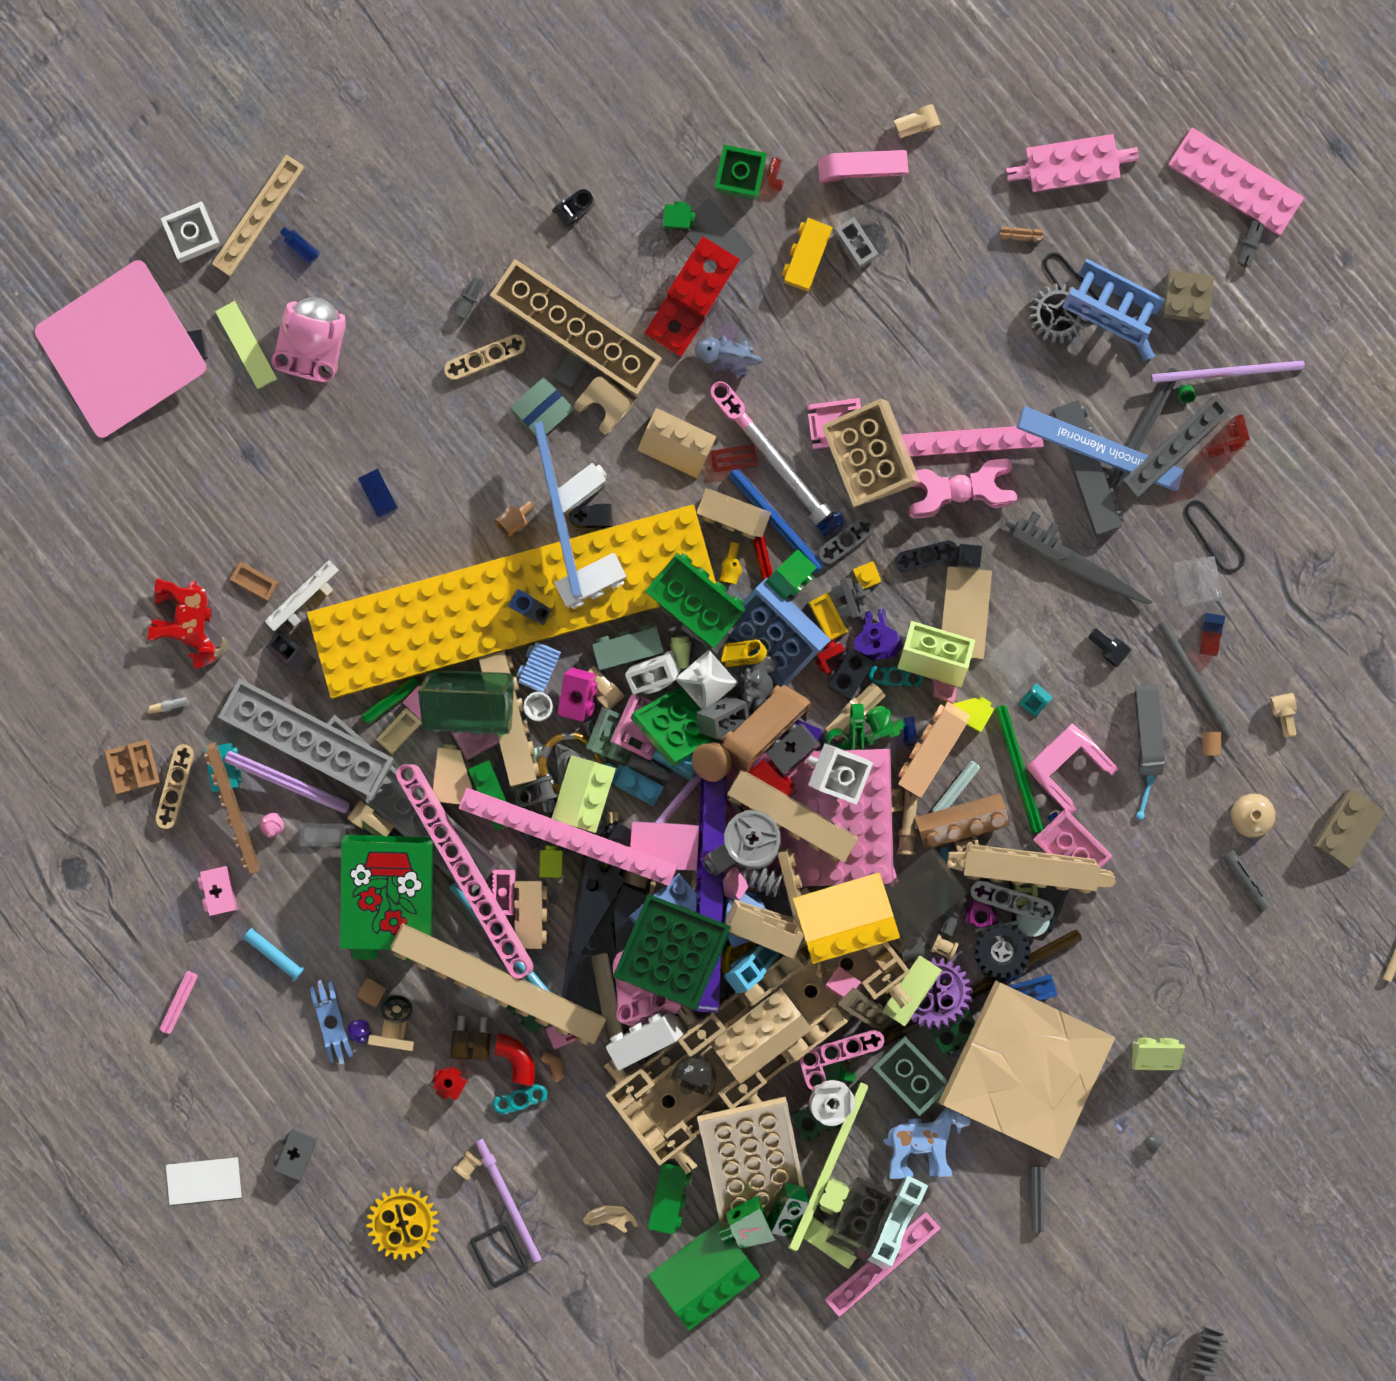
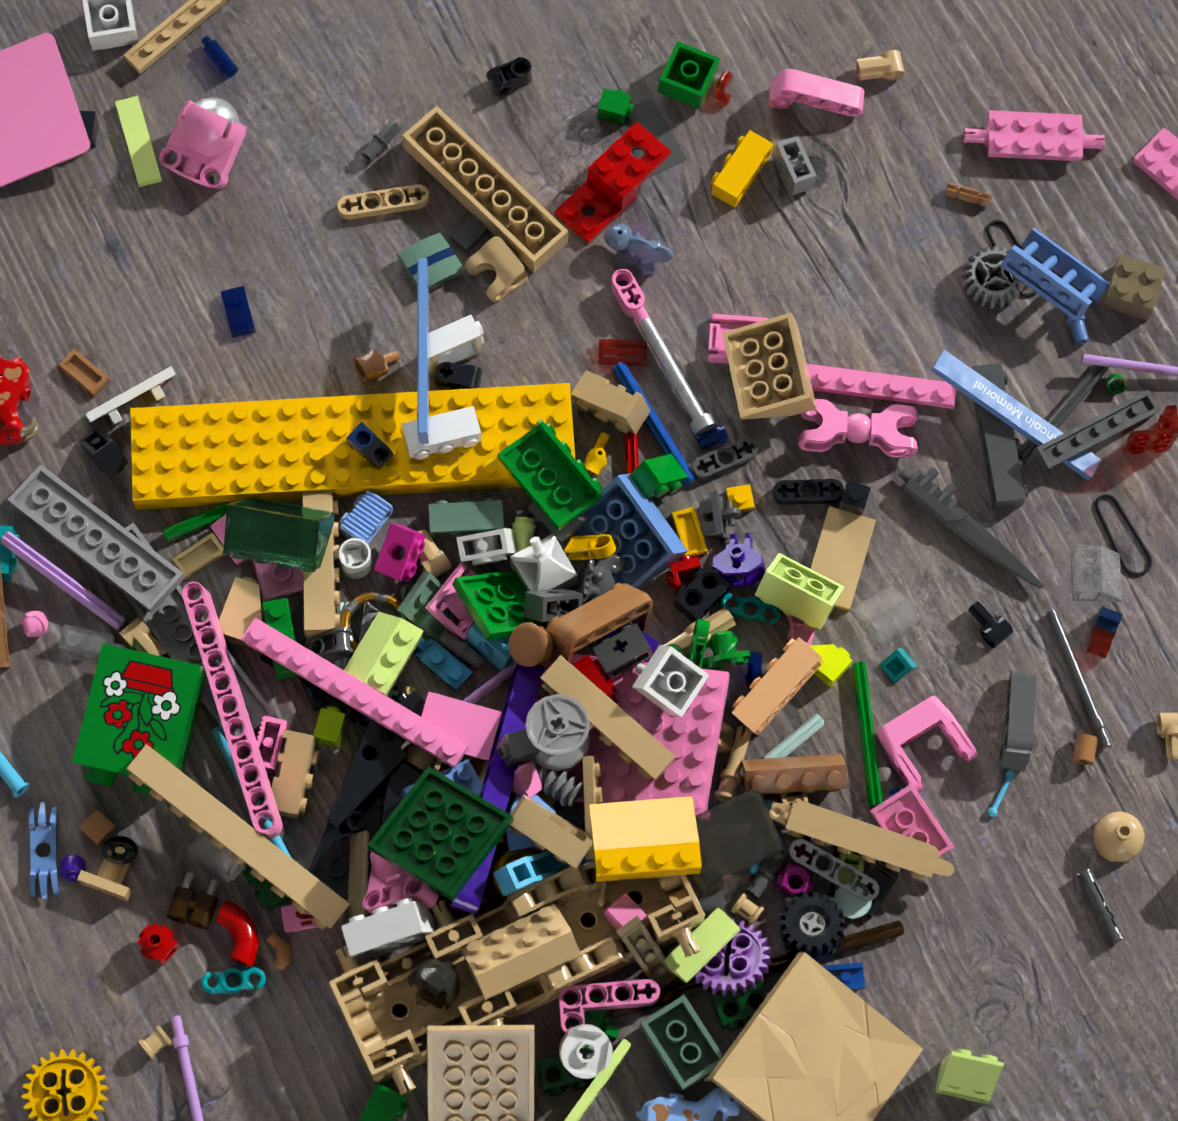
camera: 10 degrees right, 15 degrees down
(676, 443) = (565, 323): tan slope -> none

